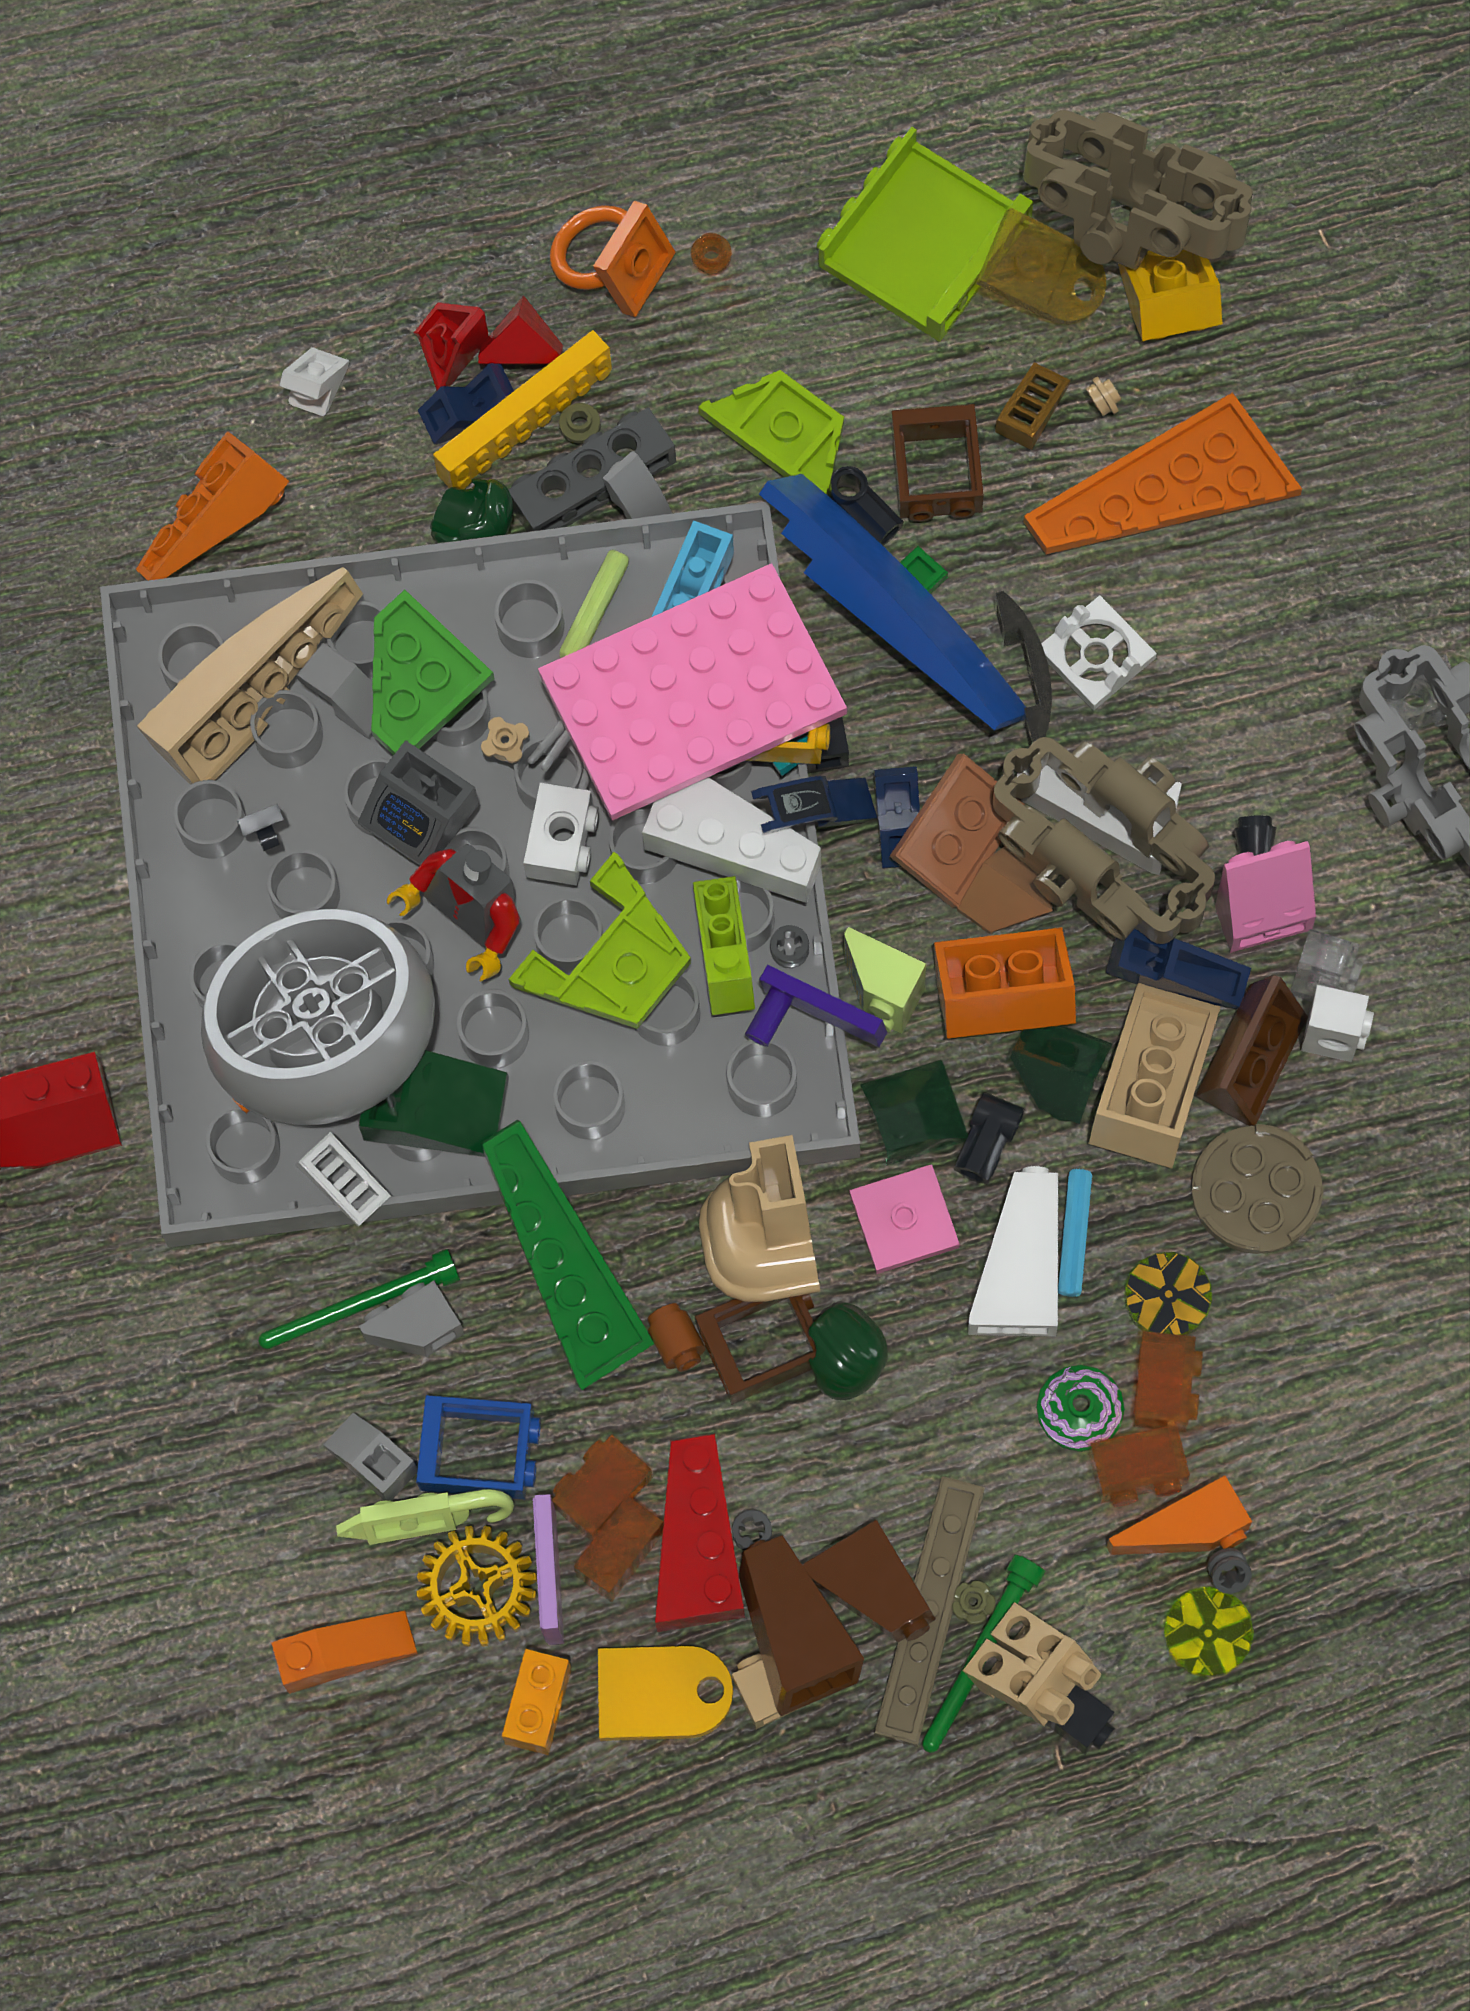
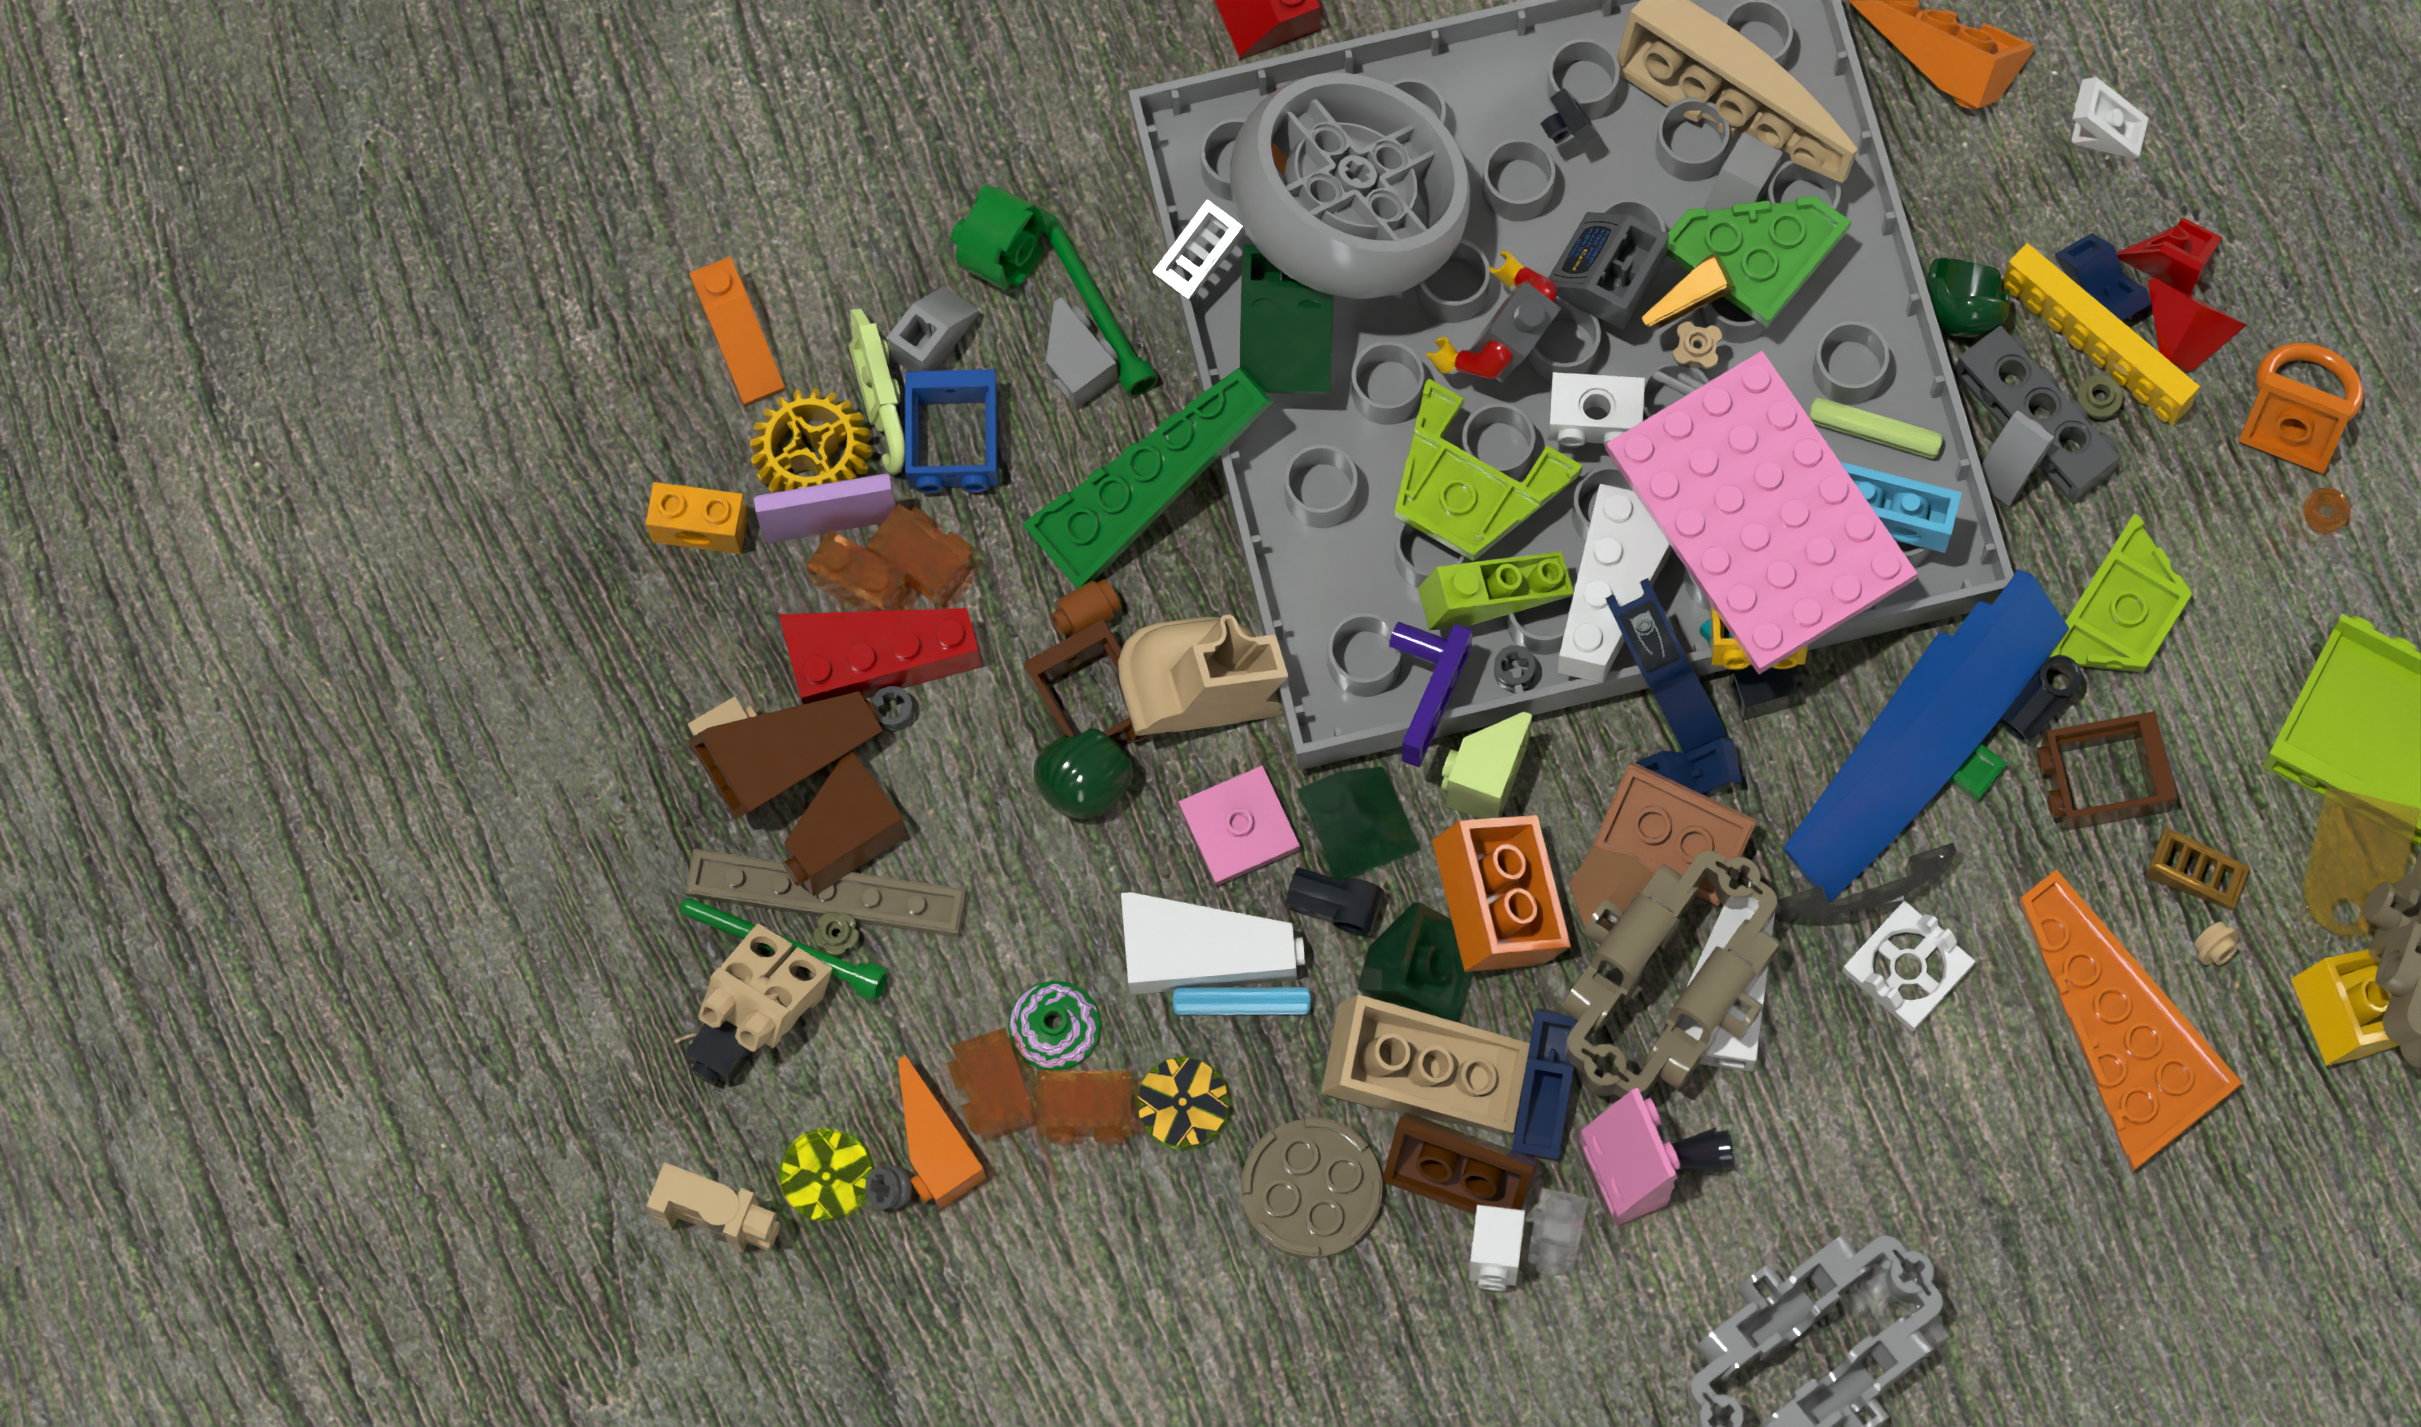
camera: 85 degrees right, 0 degrees up
(287, 1378) = (1000, 237): none -> green brick
(458, 728) = (1698, 288): none -> slope
(655, 1693) = (720, 635): yellow tile -> none
(1251, 1717) = (712, 1207): none -> tan hips

